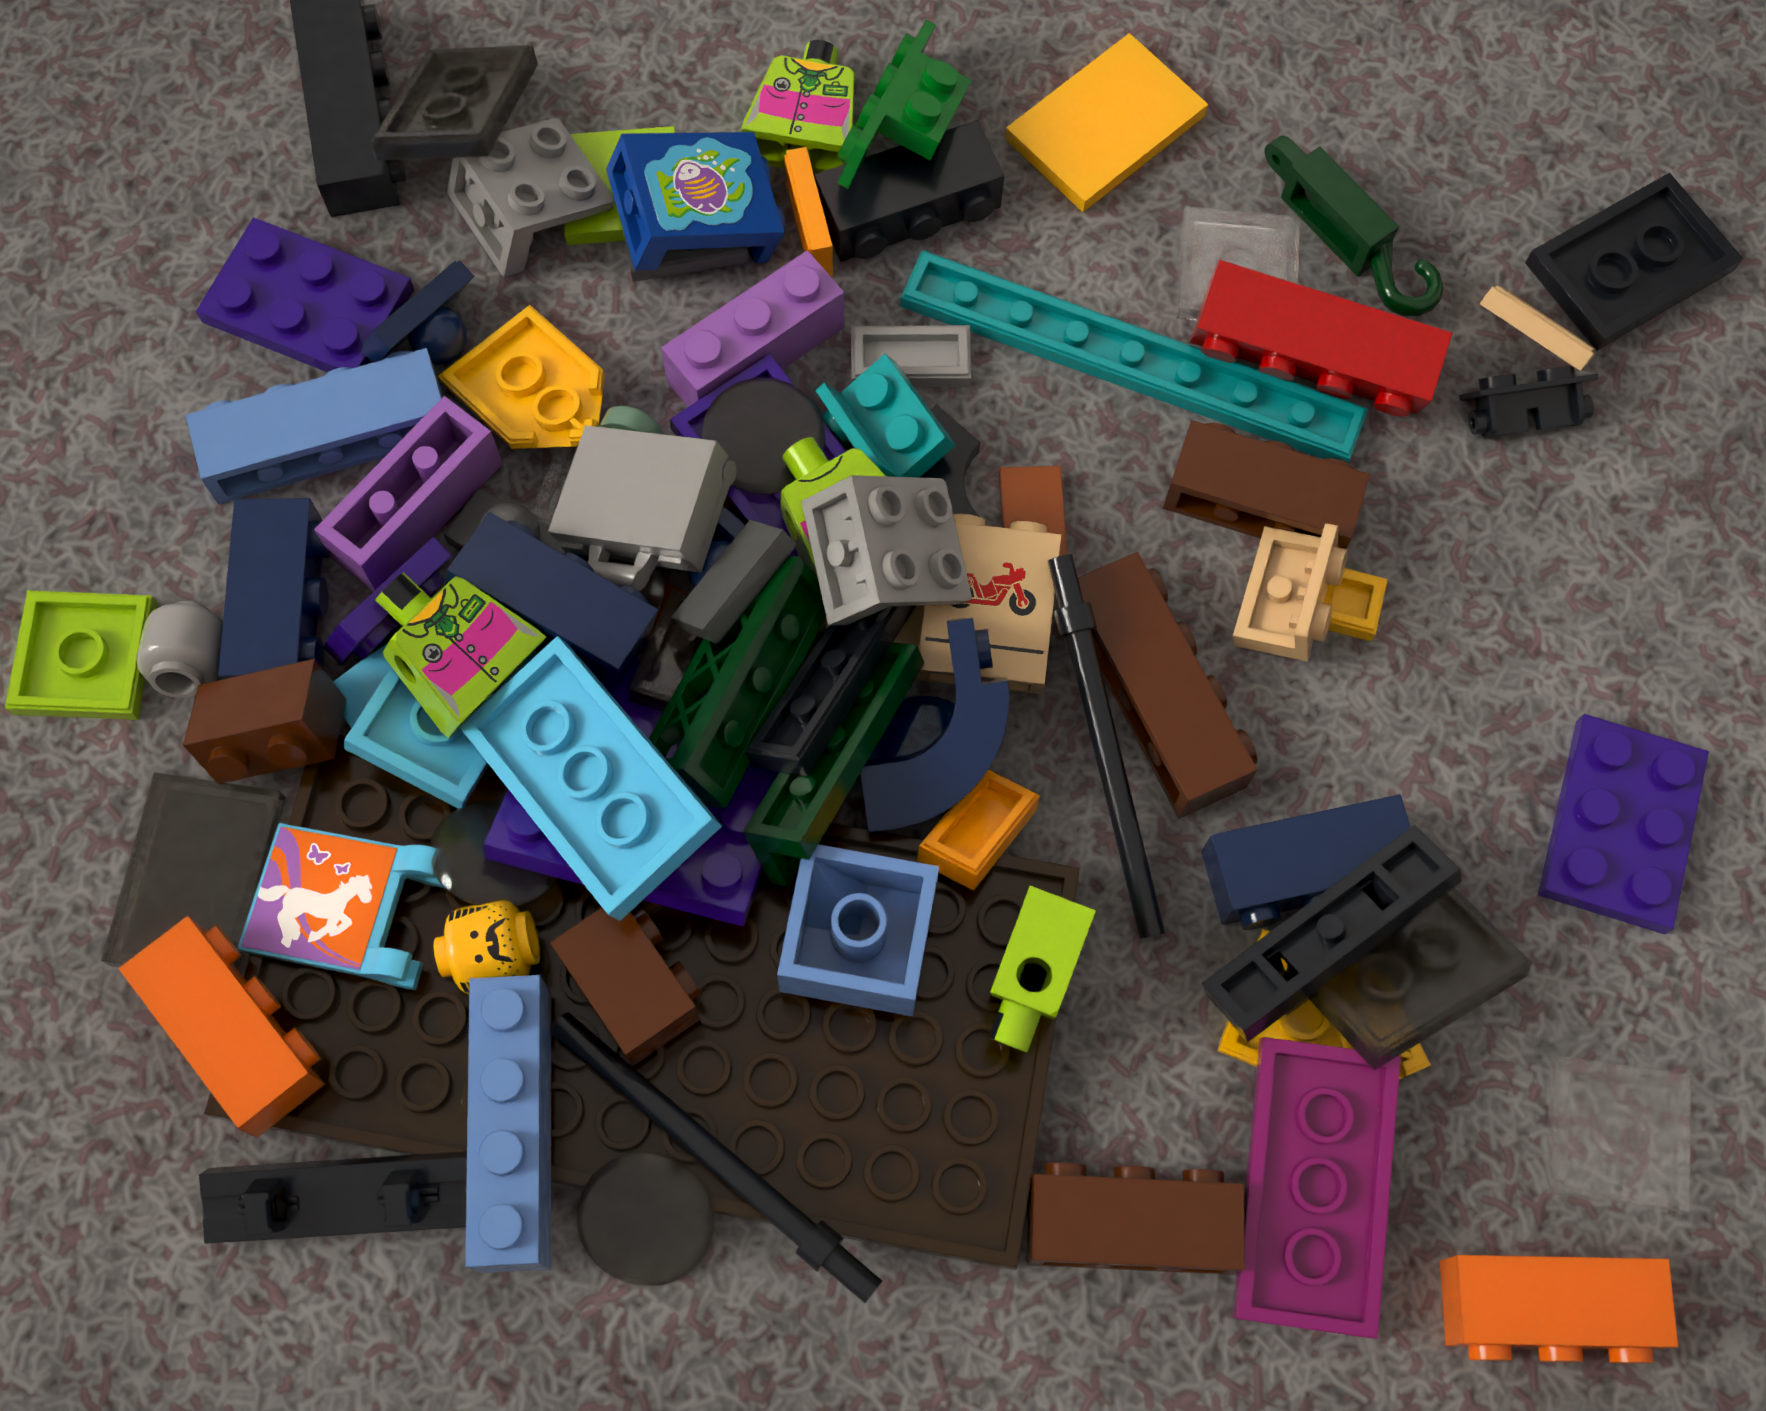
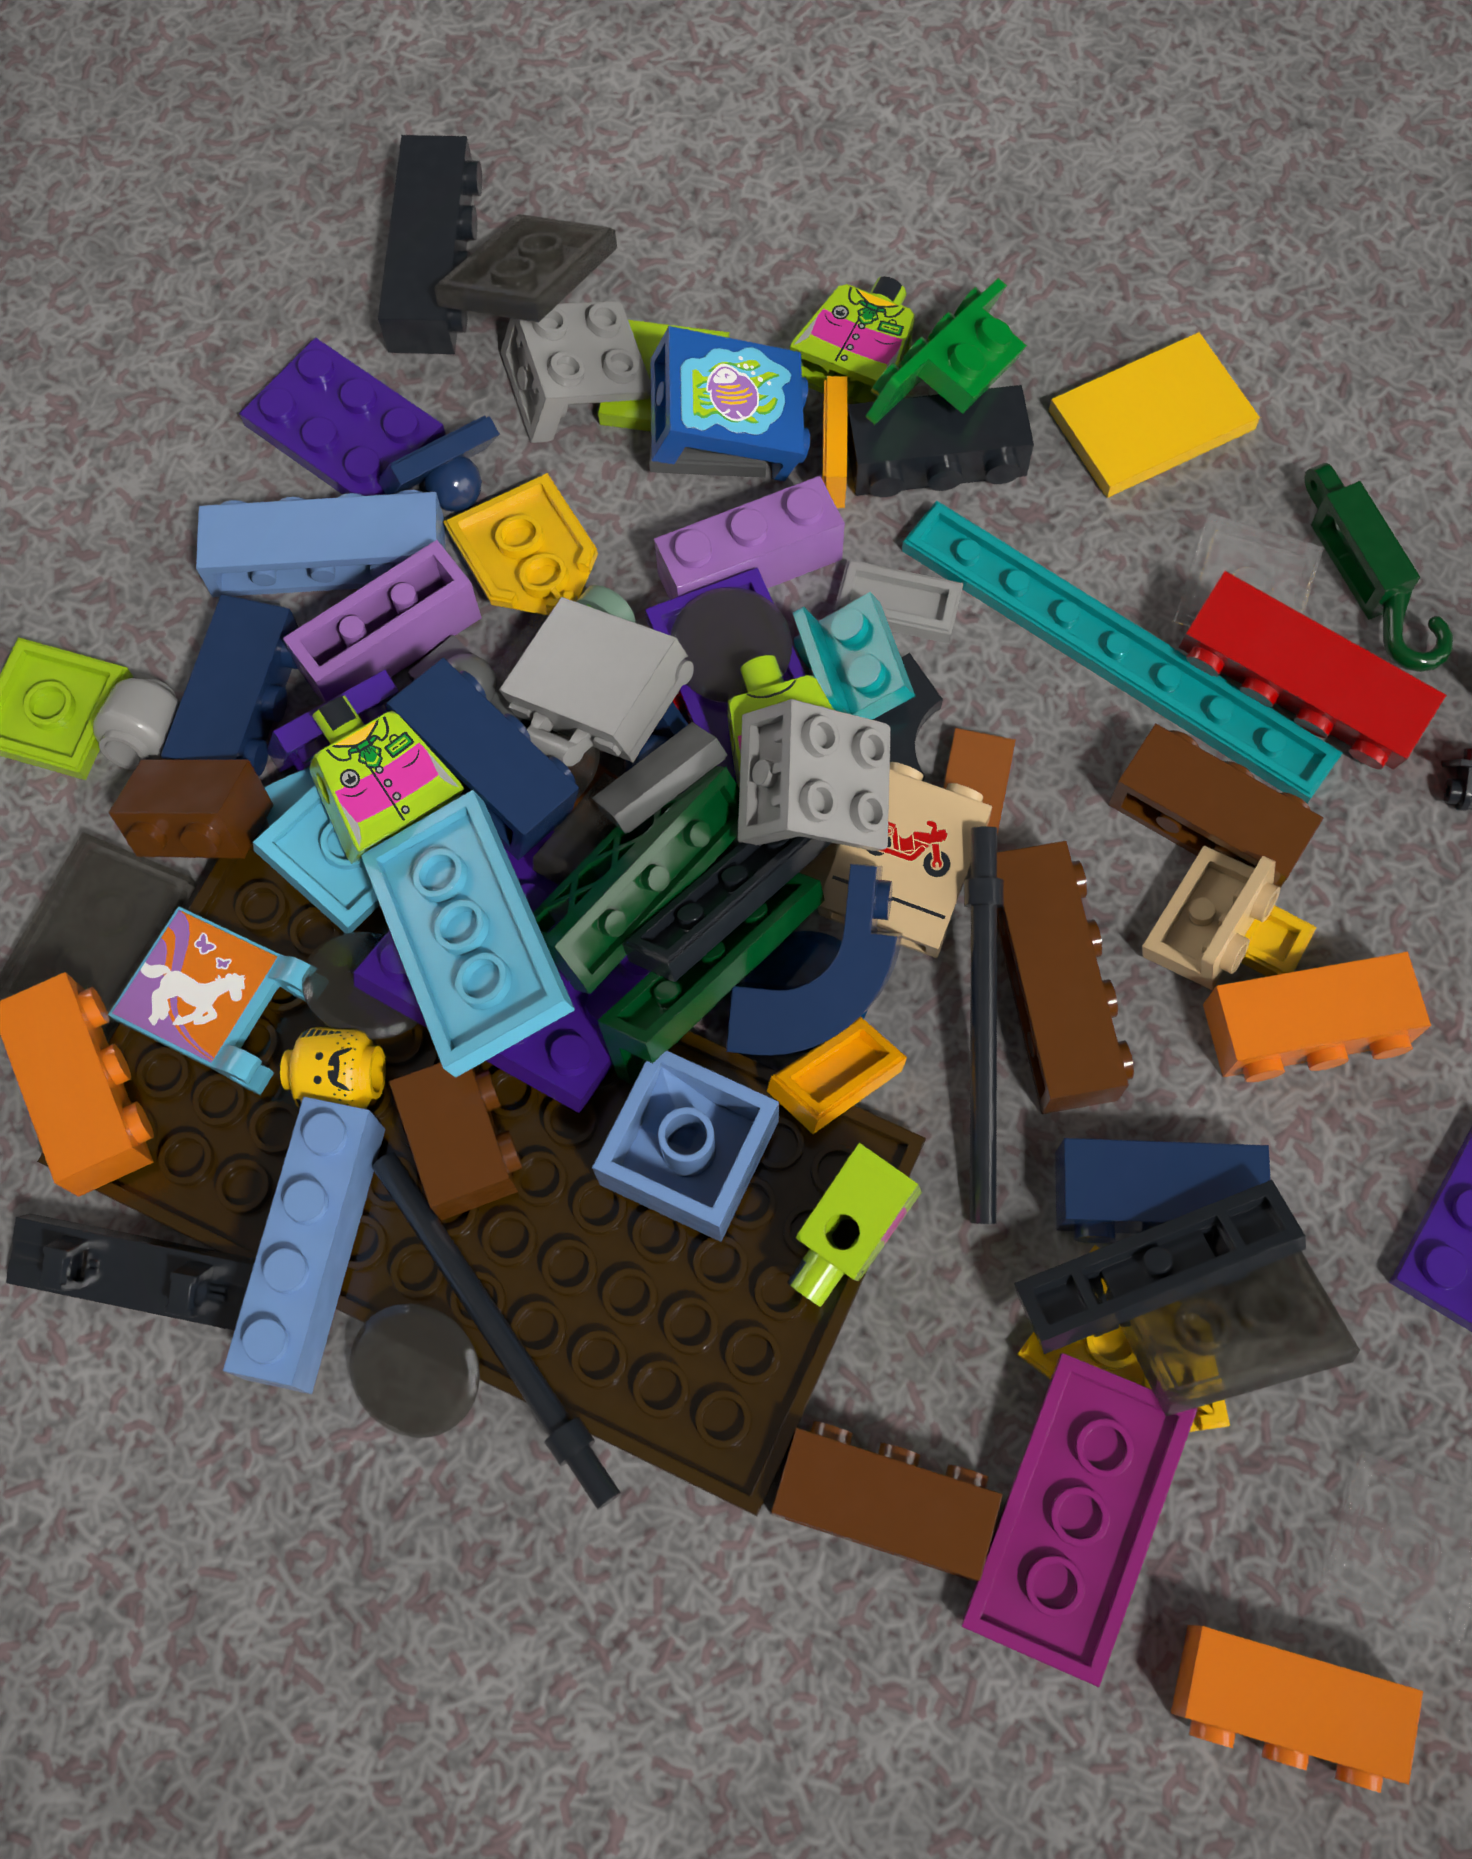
camera: 20 degrees right, 0 degrees up
(1409, 664) = (1316, 1017): none -> orange brick

